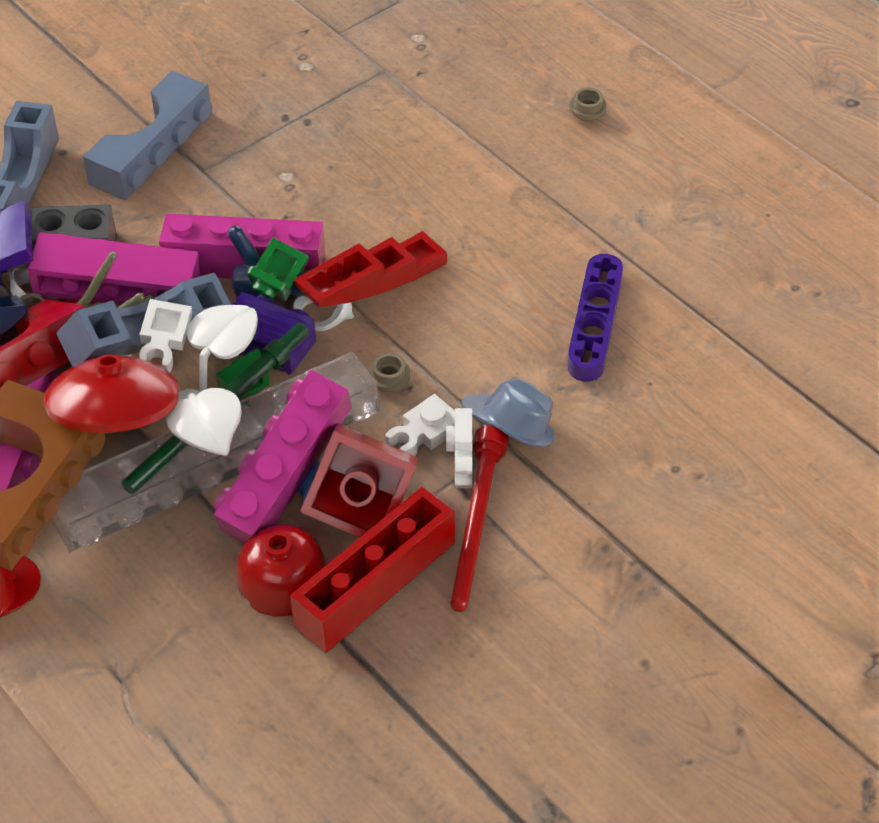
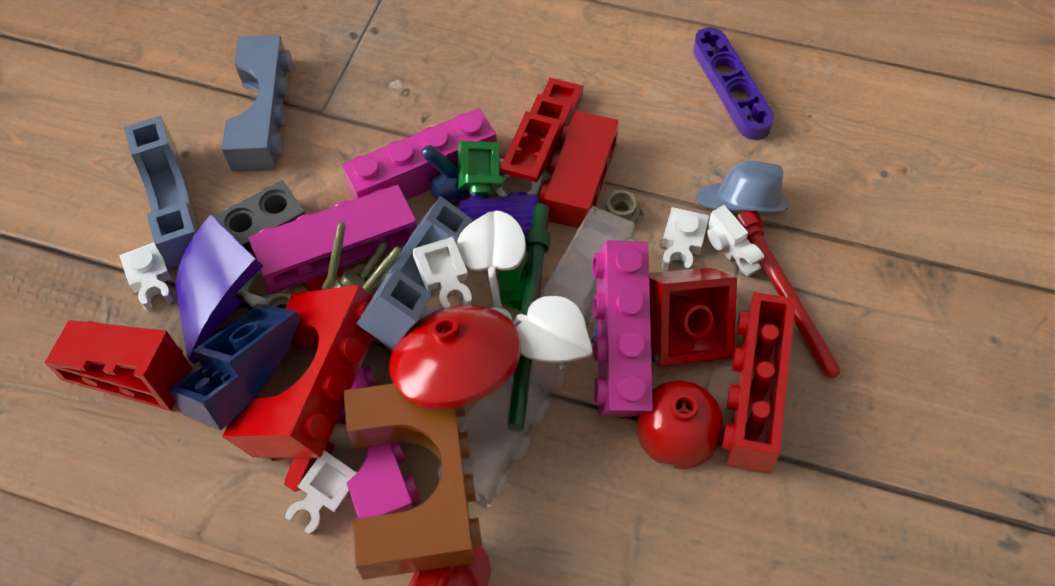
camera: 30 degrees left, 10 degrees up
(381, 318) = (579, 168): none -> red brick

